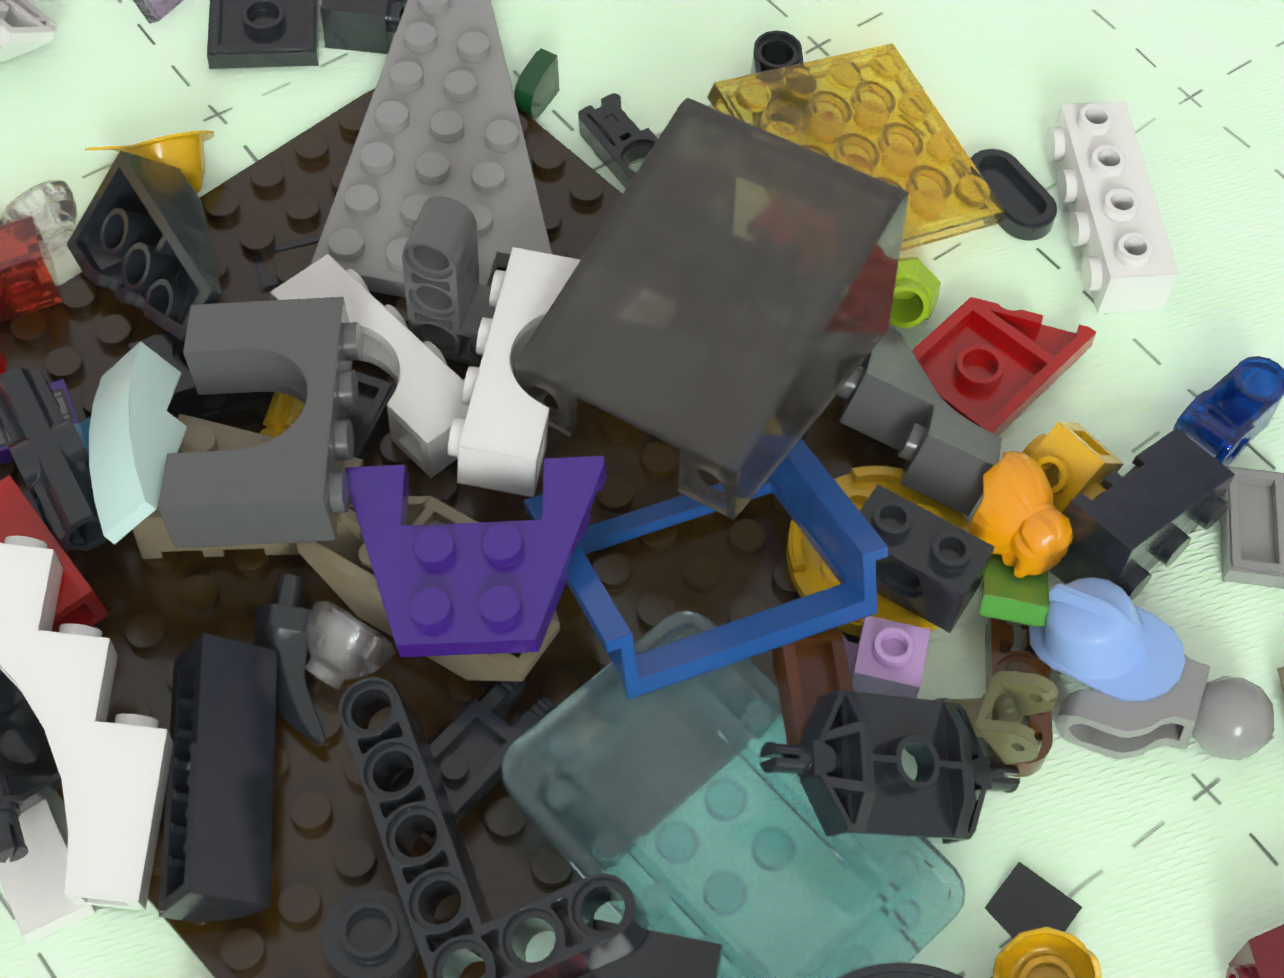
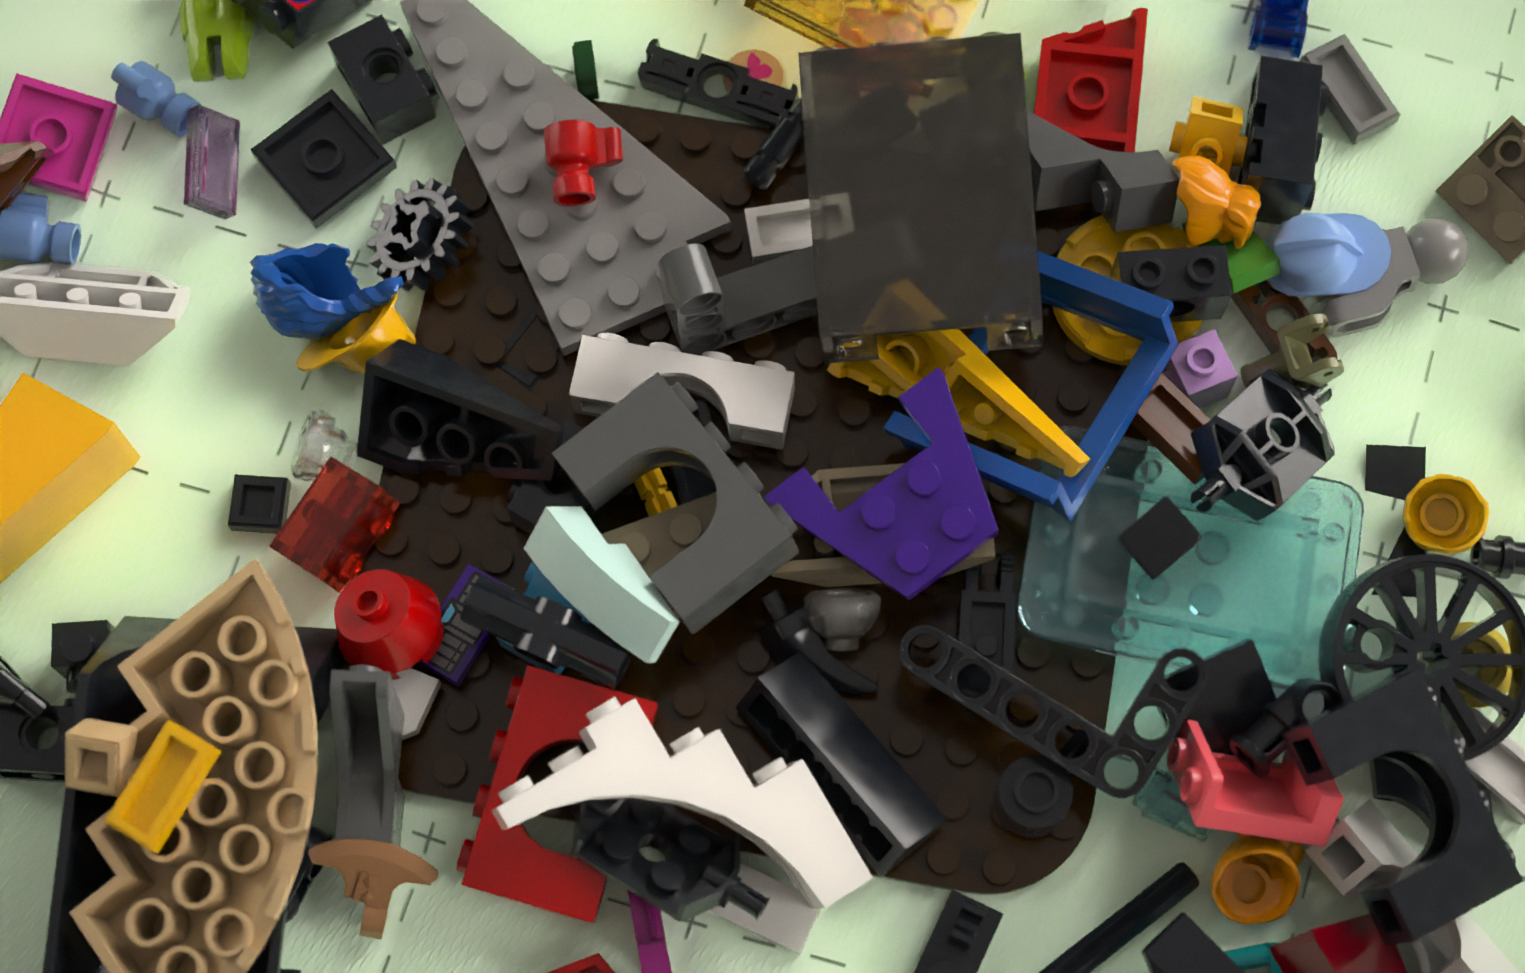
camera: 30 degrees left, 15 degrees up
(146, 94) = (313, 291): none -> blue hair
(279, 112) = (420, 234): none -> black gear
(457, 114) = (572, 151): none -> red piece
(504, 427) = (838, 389): white arch -> none
(635, 520) = (983, 395): none -> yellow wedge
(707, 779) = (1159, 538): none -> black slope

